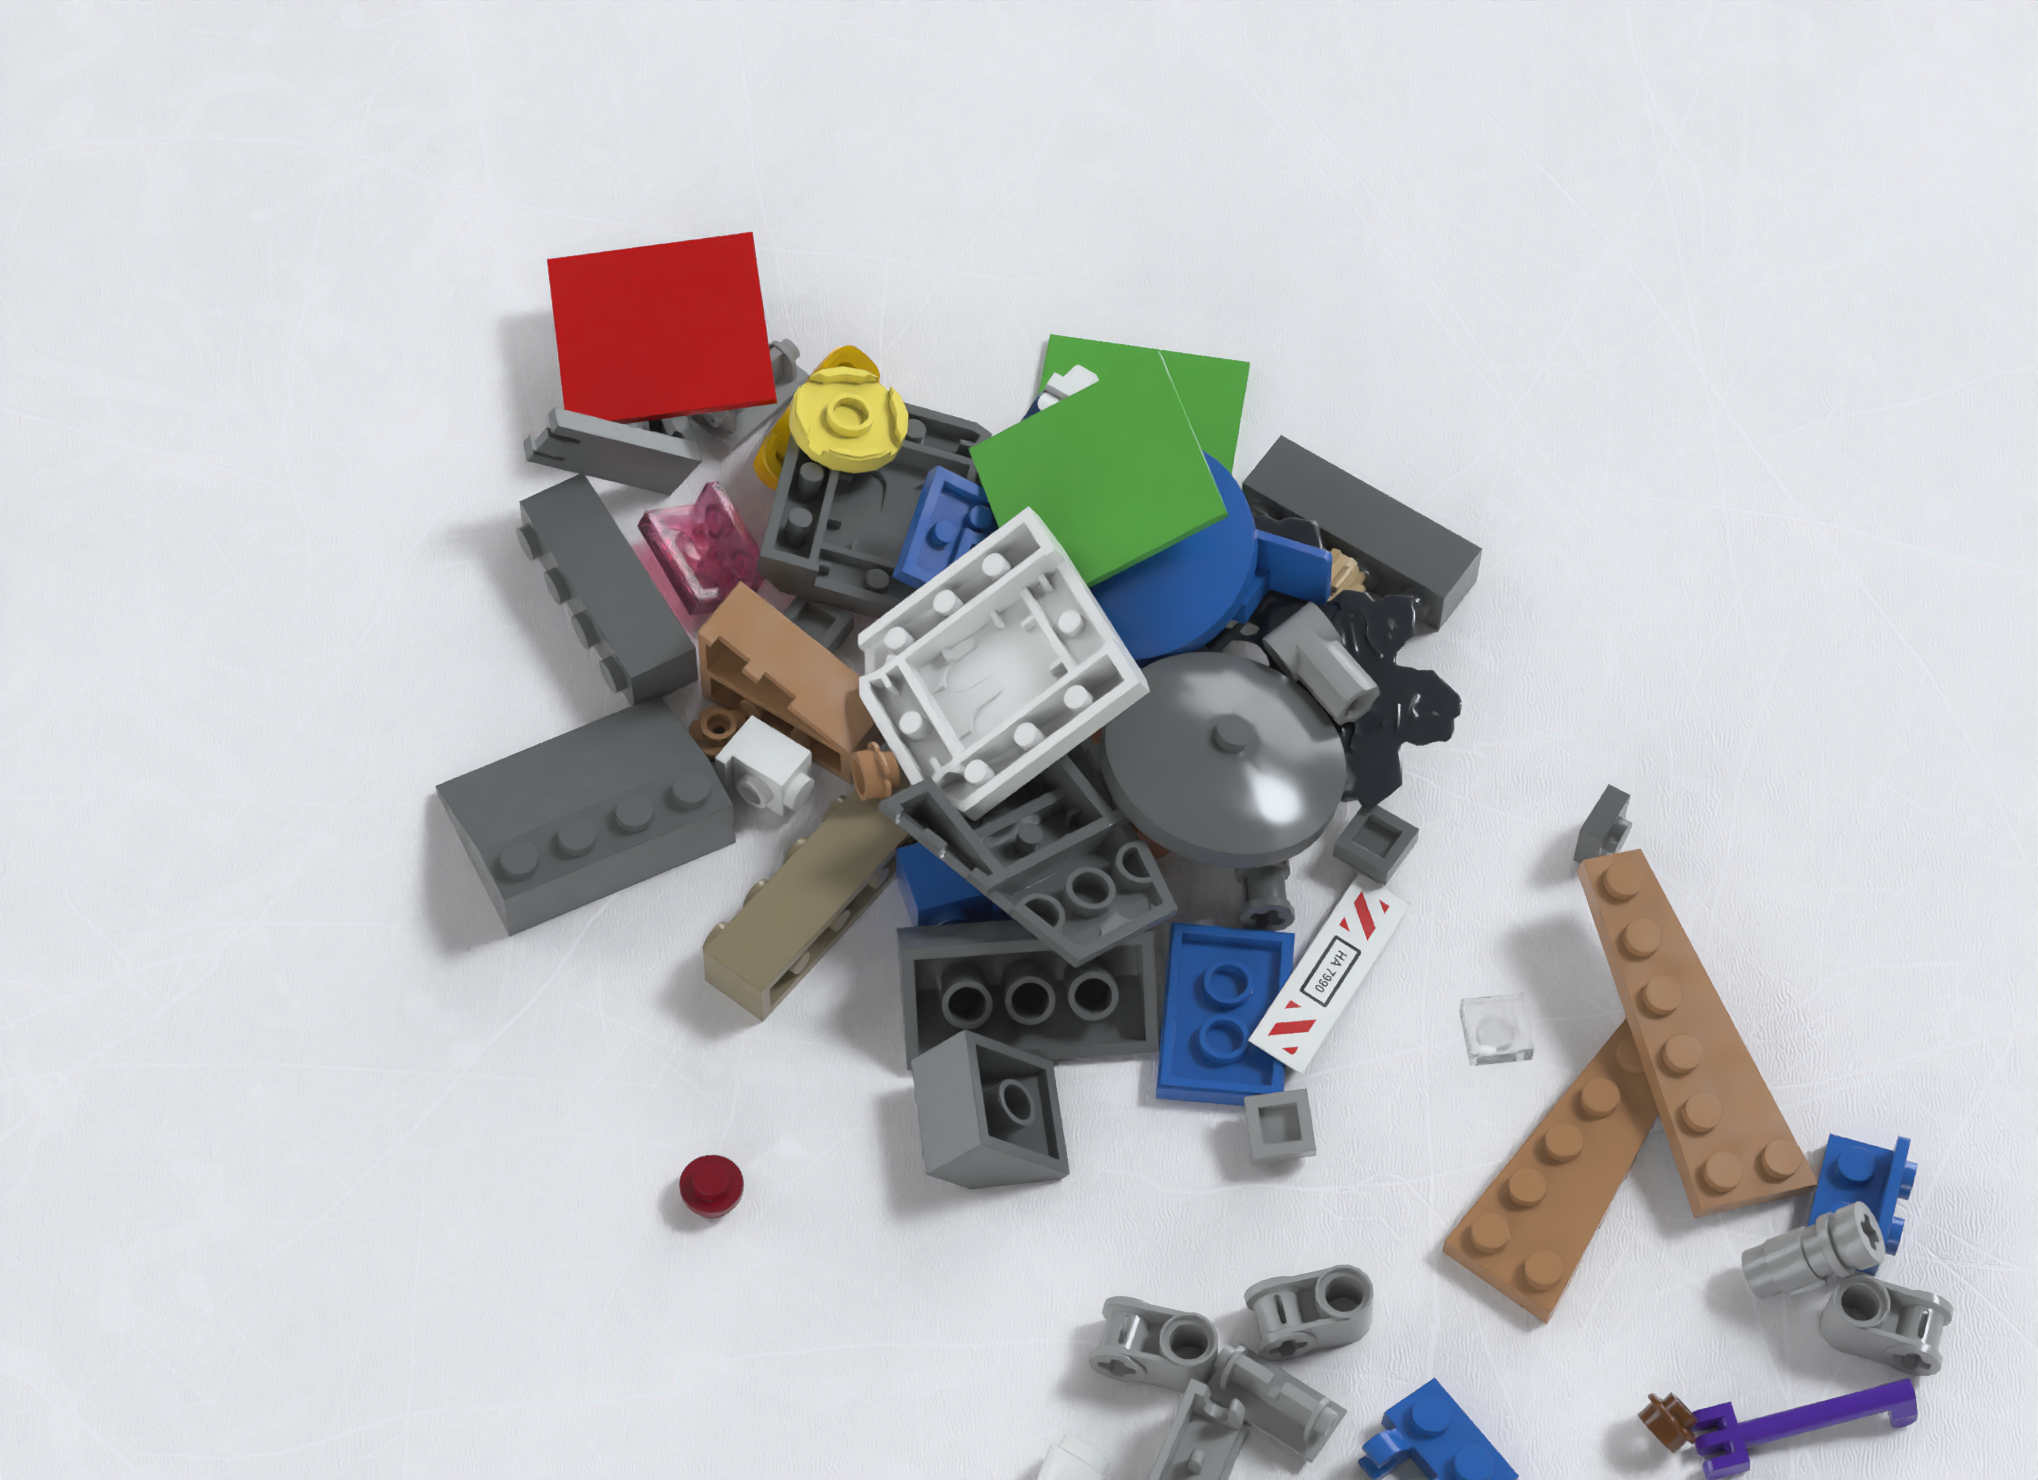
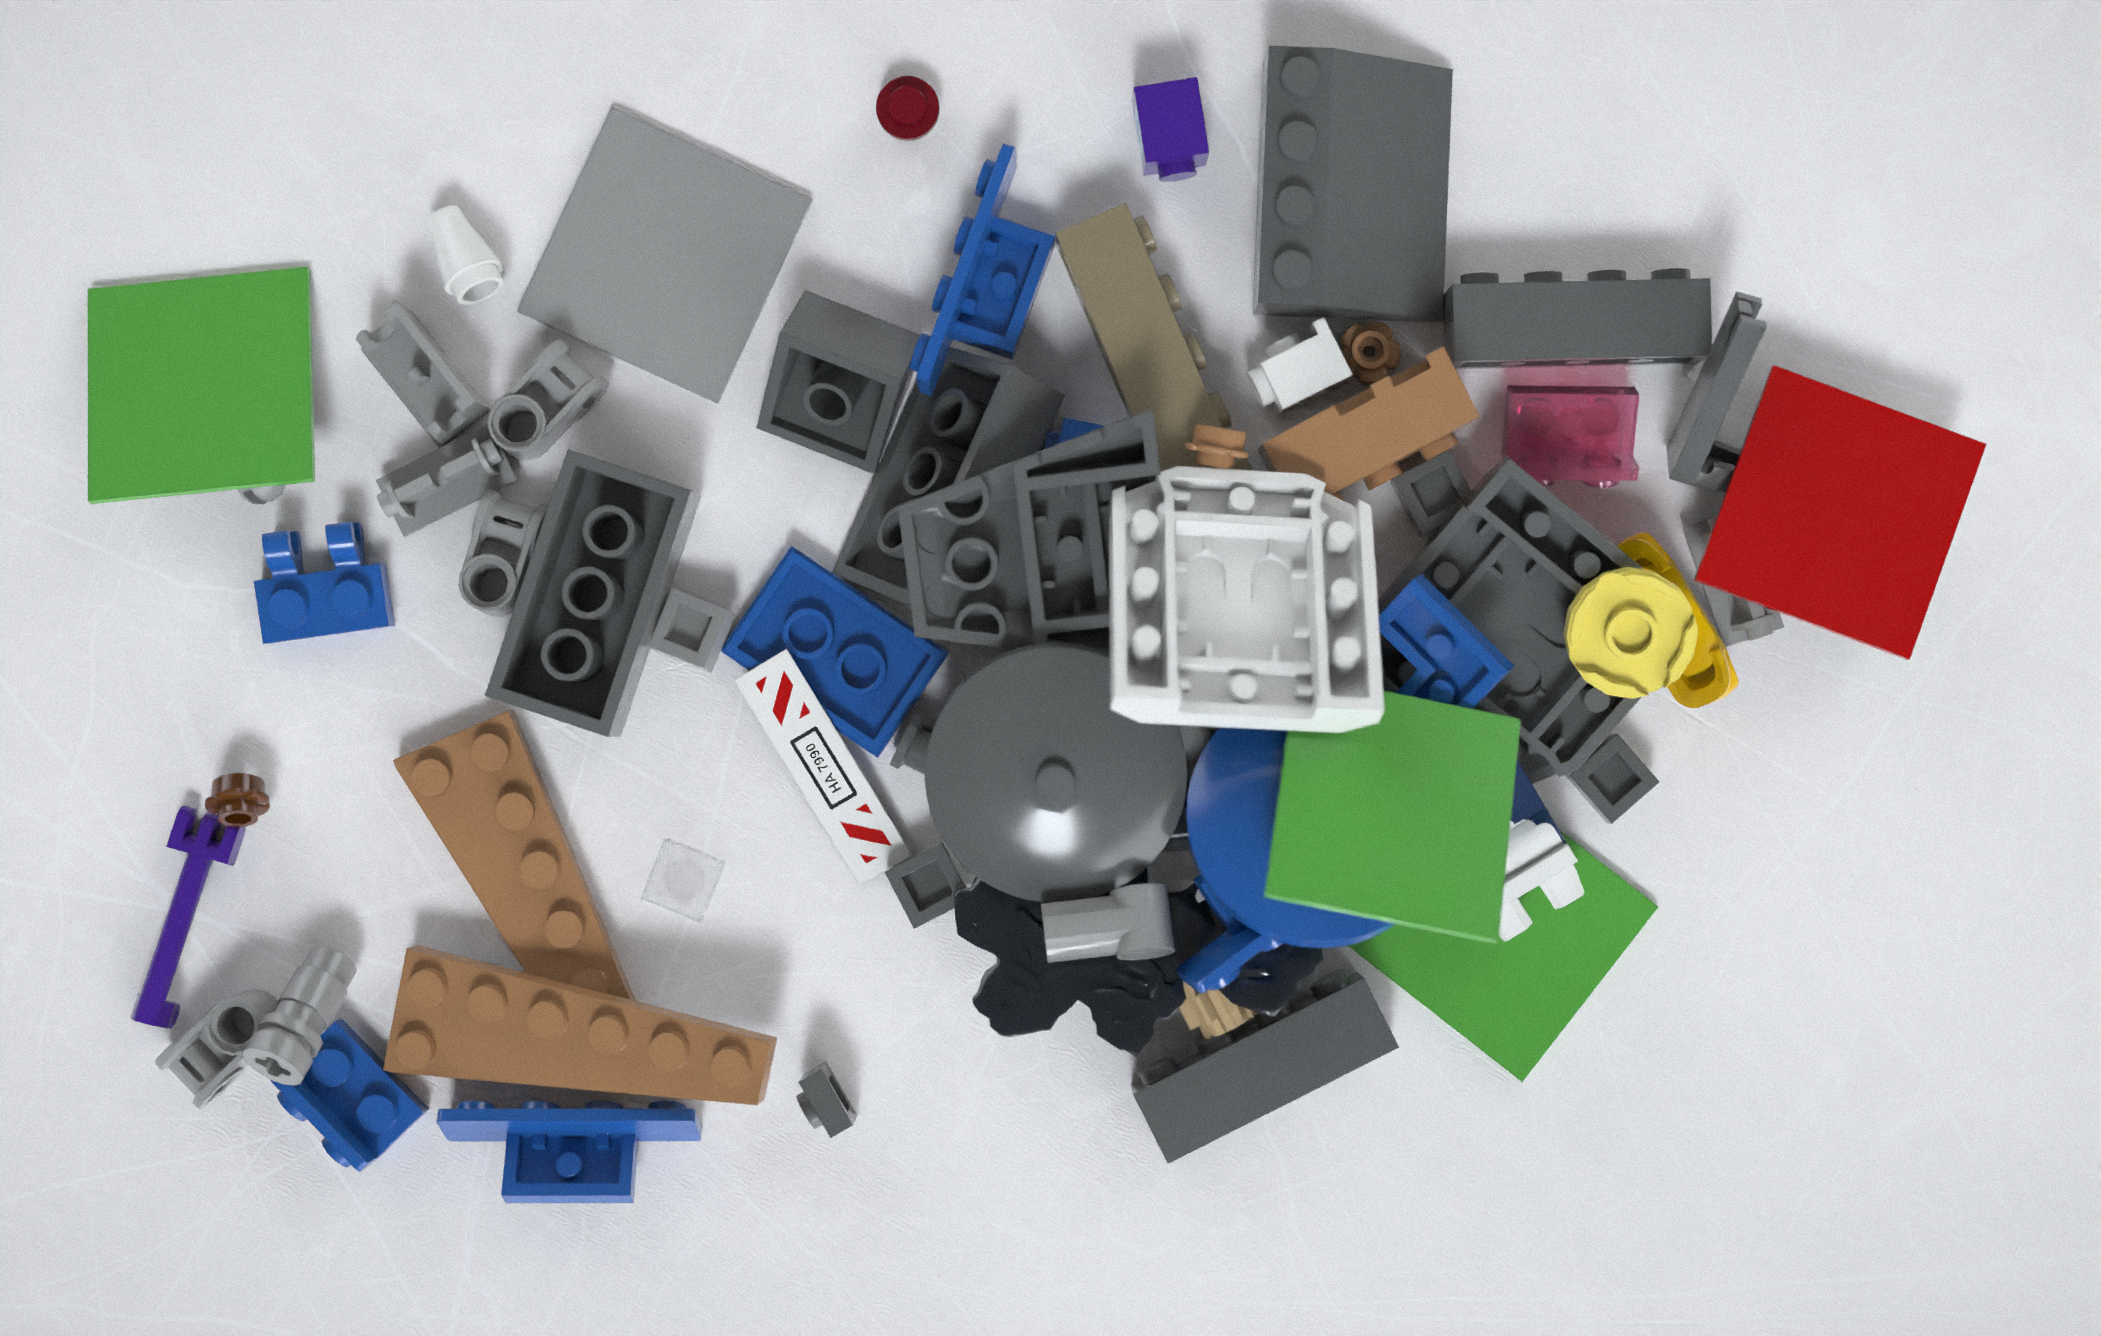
camera: 125 degrees right, 30 degrees up
(613, 963) = (1170, 129): none -> dark purple brick
(825, 1035) = (993, 281): none -> blue bracket
(960, 1330) = (664, 255): none -> light grey piece
(971, 397) = (1613, 779): none -> dark grey plate
(1299, 1204) = (593, 594): none -> dark grey brick
(1785, 996) = (570, 1152): none -> blue bracket

